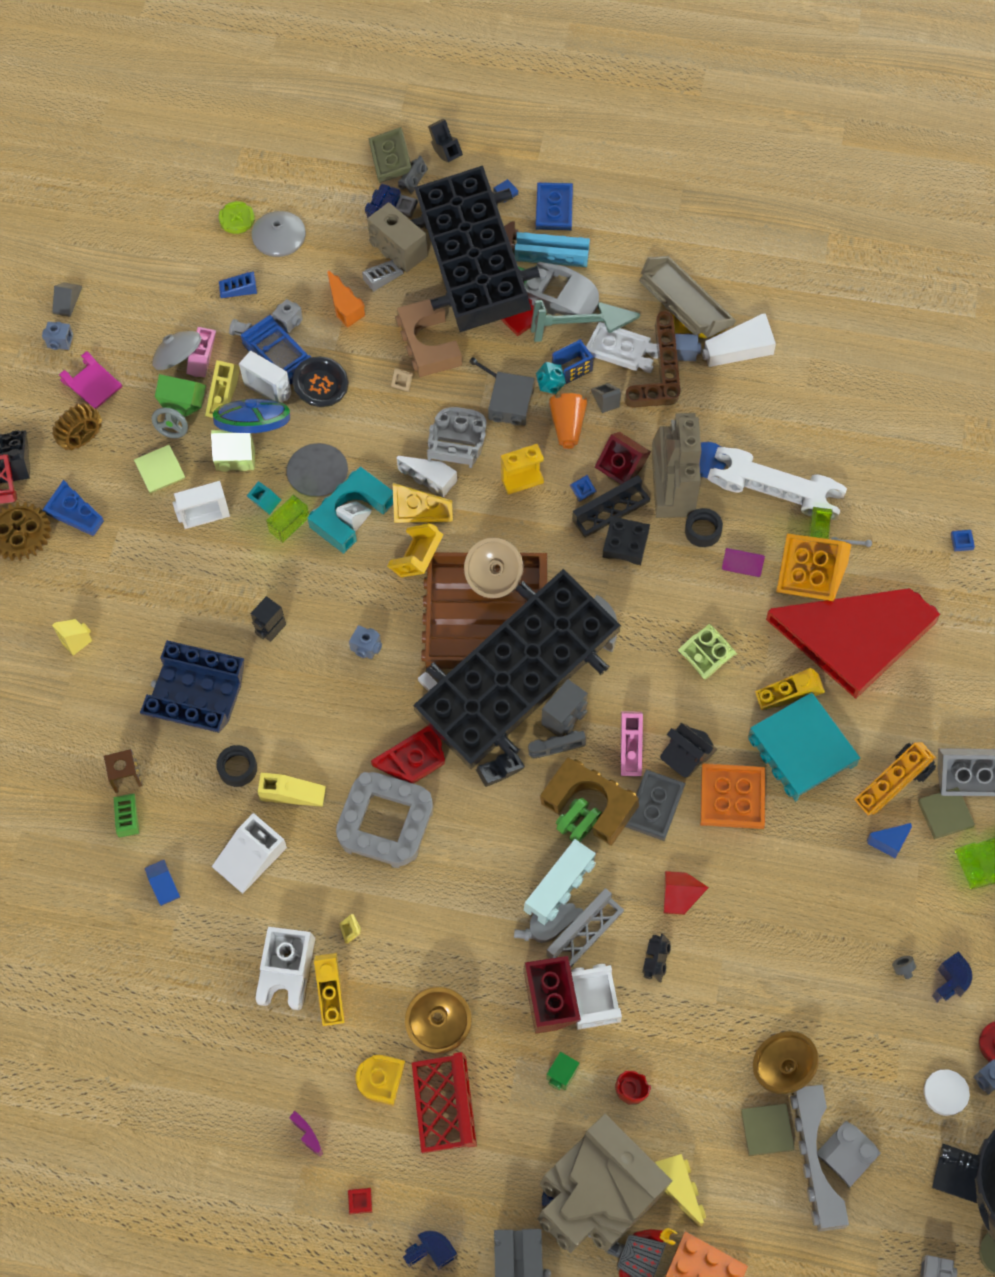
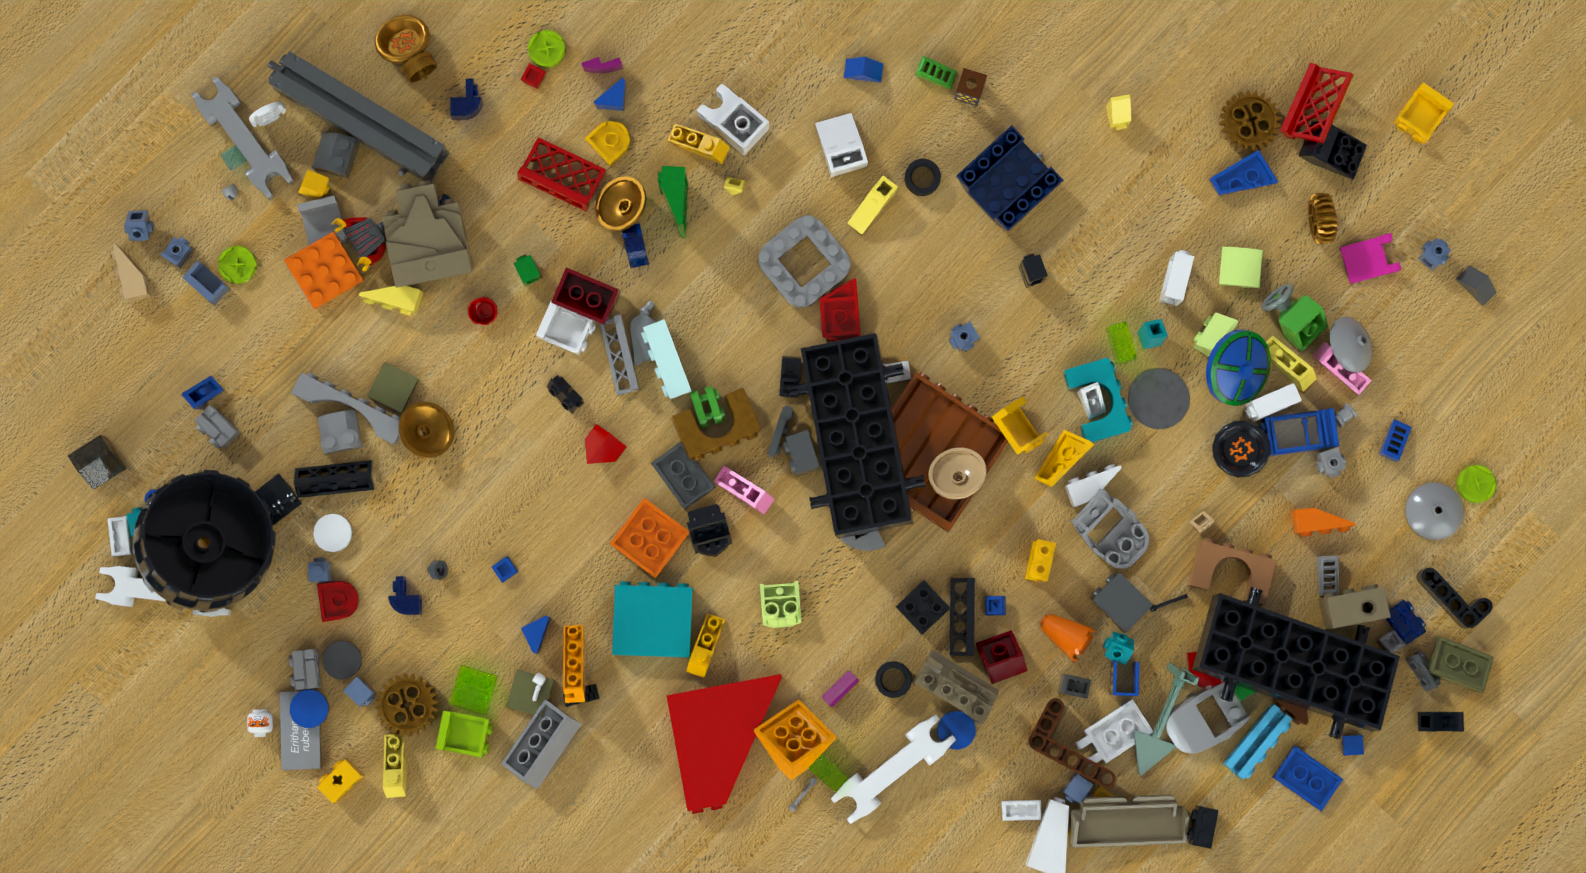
camera: 120 degrees right, 20 degrees up
(322, 1206) = (546, 48): none -> lime tile
(332, 1100) = (613, 98): none -> blue slope
(347, 170) = (1450, 595): none -> black beam
(400, 959) = (674, 187): none -> green slope
(472, 978) = (635, 246): none -> clear blue brick
(646, 246) = (1203, 826): none -> black brick
(734, 377) = (1021, 810): none -> white plate
(856, 907) = (504, 569): none -> blue tile
(901, 1121) = (333, 482): none -> black fence
(930, 807) = (539, 679): none -> white hand

